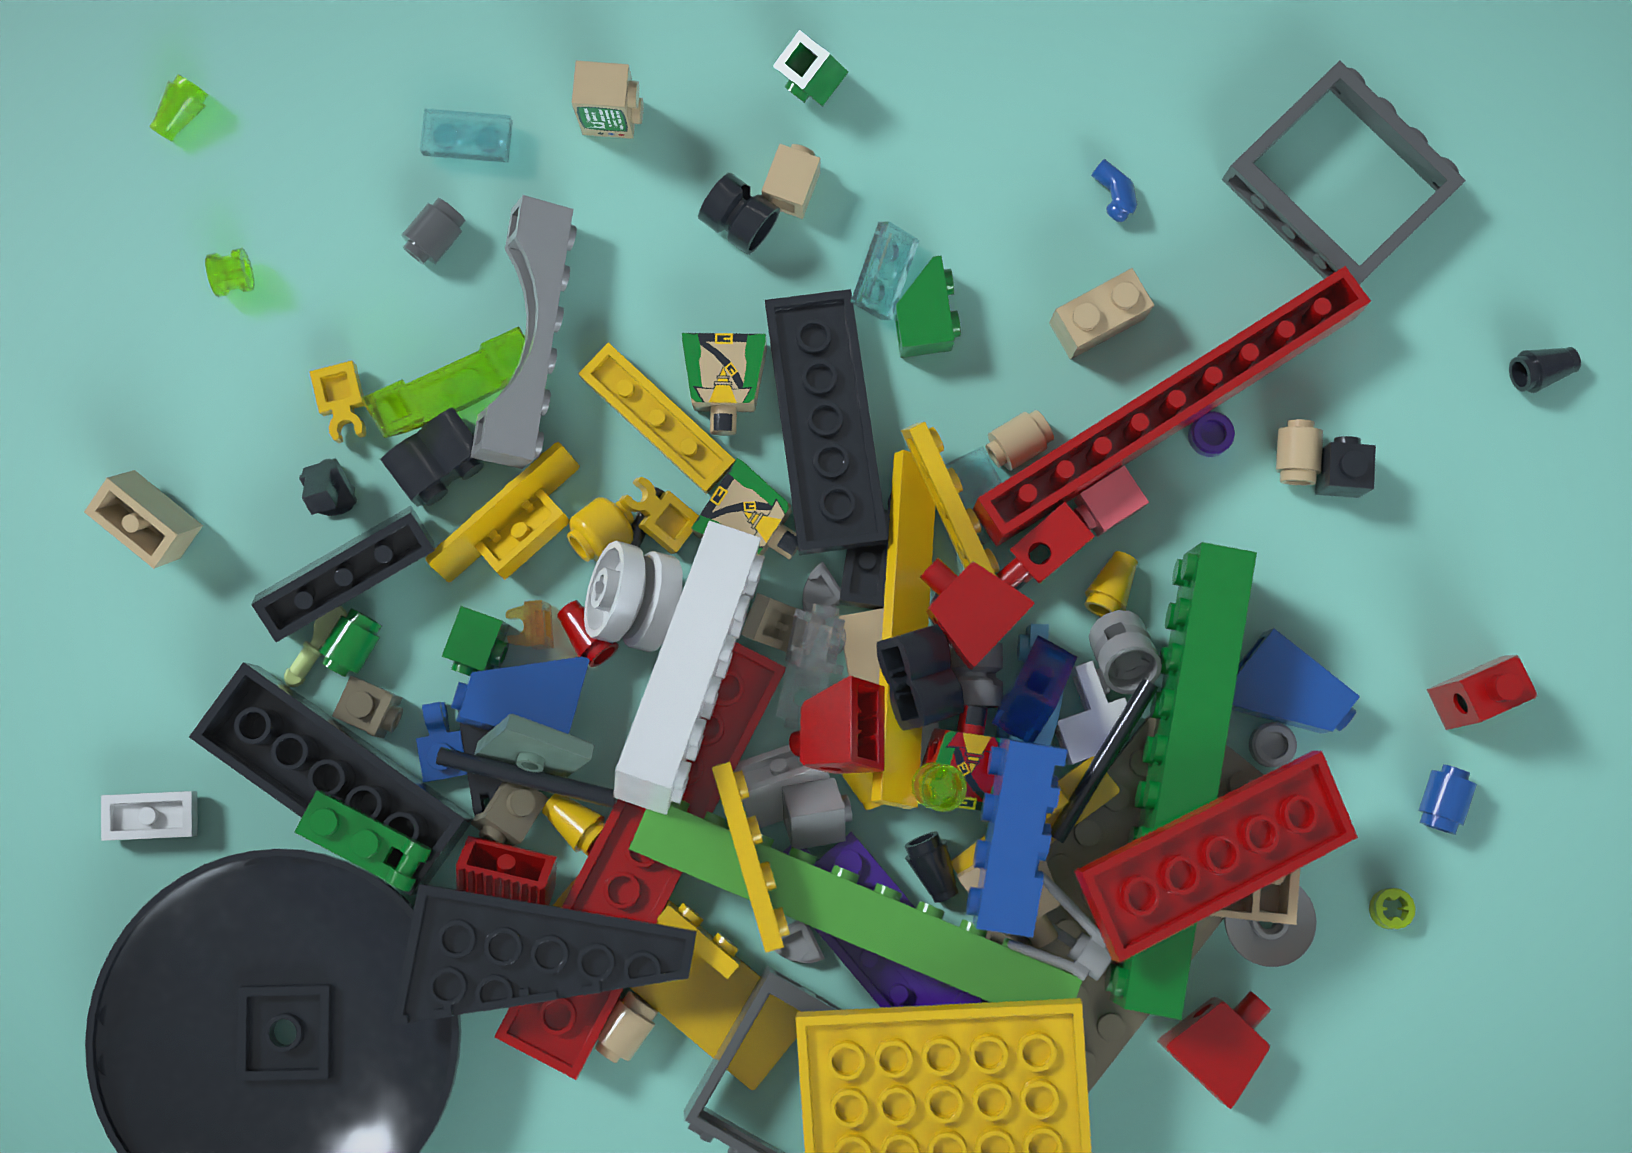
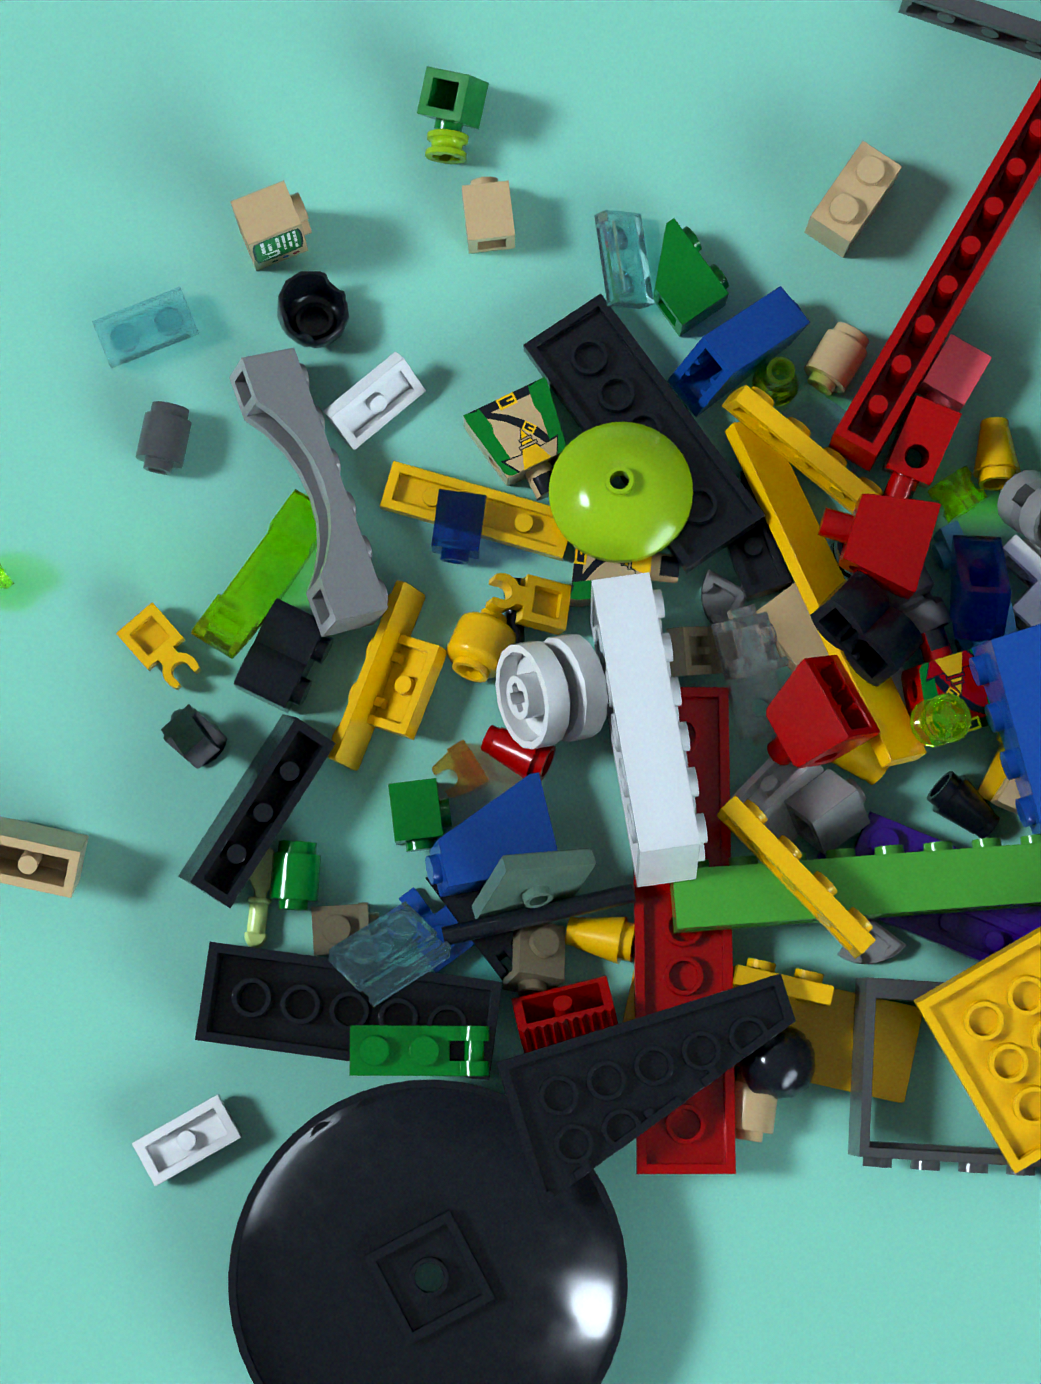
camera: 30 degrees left, 0 degrees up
(383, 747) = (389, 953): none -> clear light blue plate
(606, 185) = (312, 309): none -> black hair
(619, 286) = (374, 400): none -> white plate
(632, 422) = (458, 526): none -> clear blue bracket
(662, 1008) = (781, 1065): none -> black hair
(736, 211) = (454, 273): black wheel -> none
(782, 487) = (627, 521): none -> lime dish
(787, 107) = (446, 146): none -> lime bush
(940, 391) = (737, 350): none -> blue slope
(956, 443) = (779, 390): none -> clear neon green cone
(1062, 602) = (957, 494): none -> clear neon green wheel
(1121, 190) = (809, 68): blue arm -> none
(1211, 434) = (1014, 263): dark purple tile -> none

